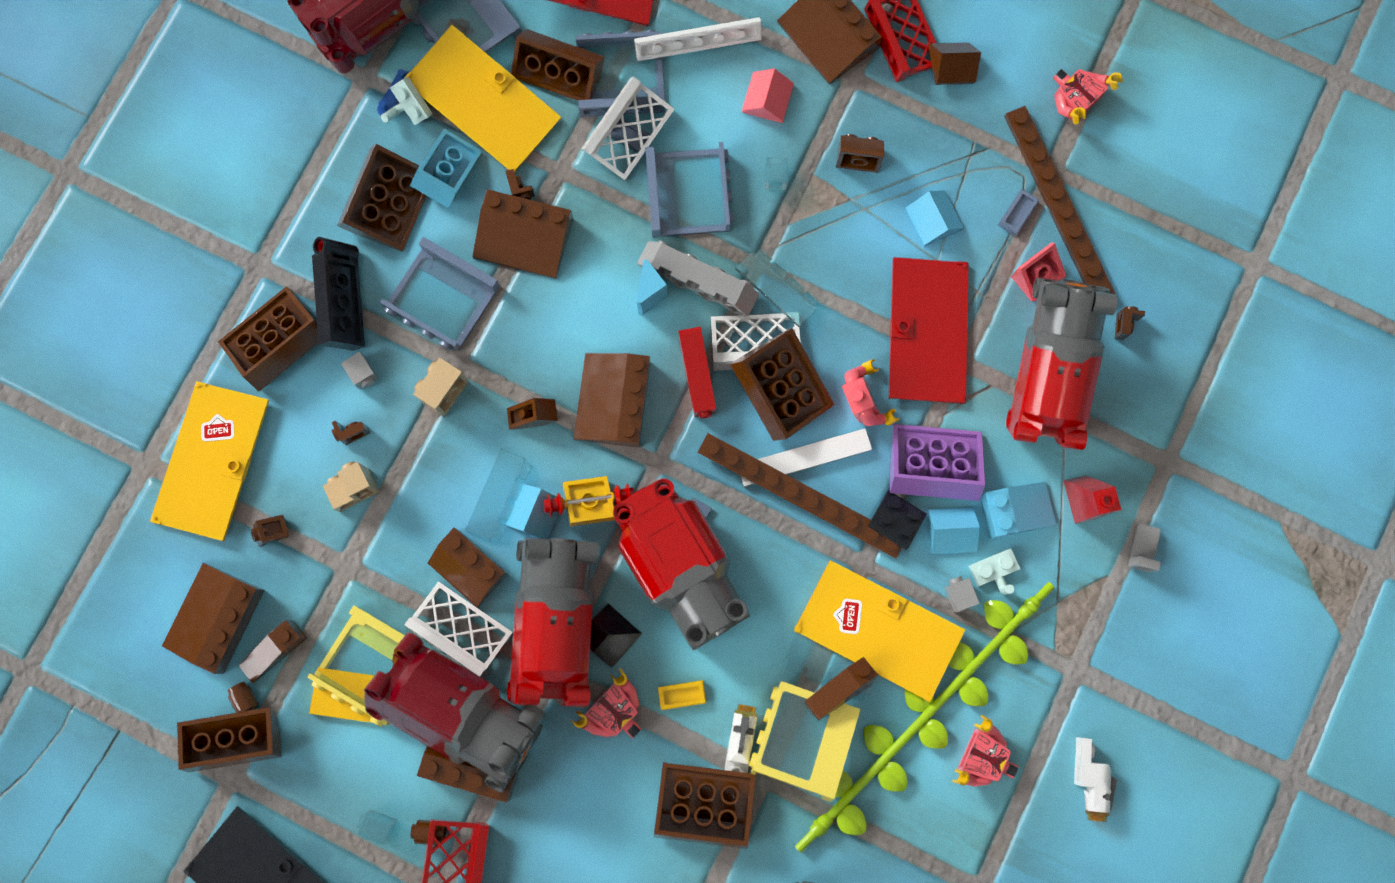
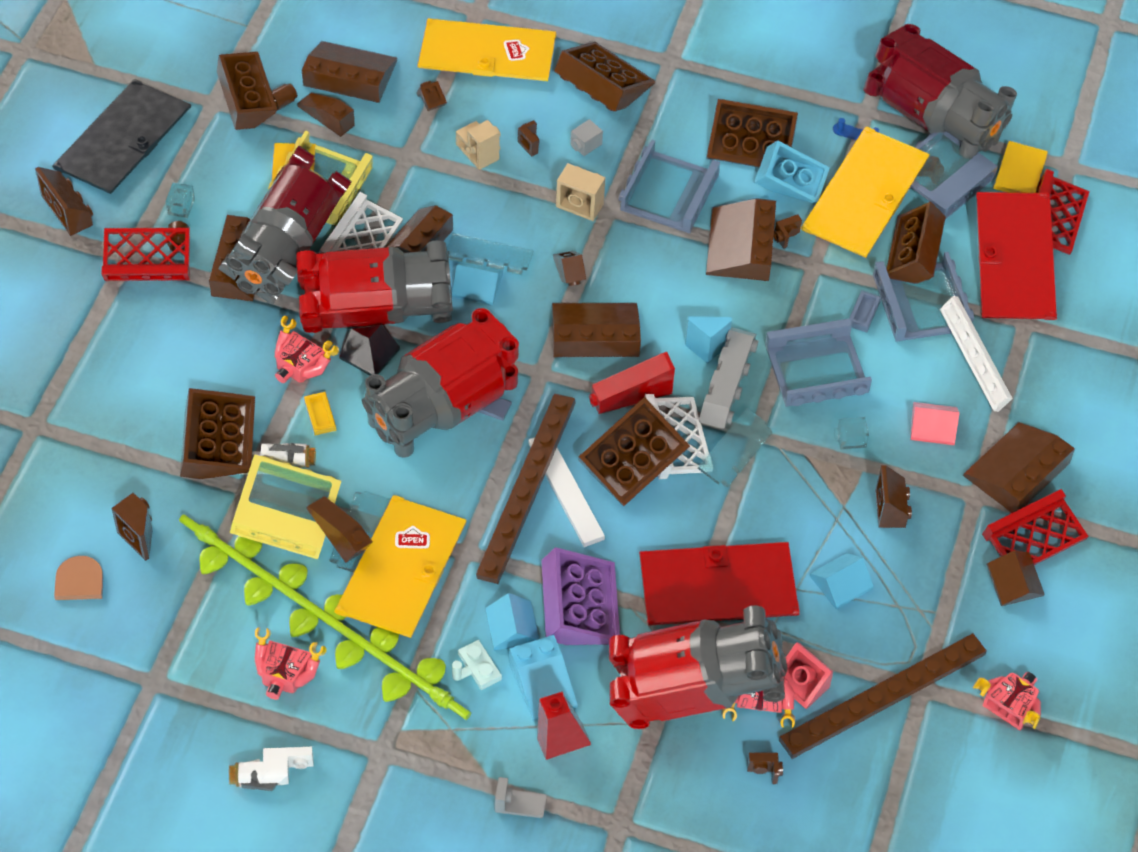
camera: 80 degrees right, 25 degrees down
(337, 294) = (641, 109): black hinge -> none
(409, 100) = (846, 140): light aqua plate -> none
(587, 500) = (498, 304): yellow plate -> none
(616, 113) = (870, 284): white fence -> none
(861, 397) = (634, 522): coral torso -> none
(897, 520) = (514, 568): black plate -> none
(961, 594) = (446, 632): light grey brick -> none
(1018, 212) = (866, 657): sand blue tile -> none

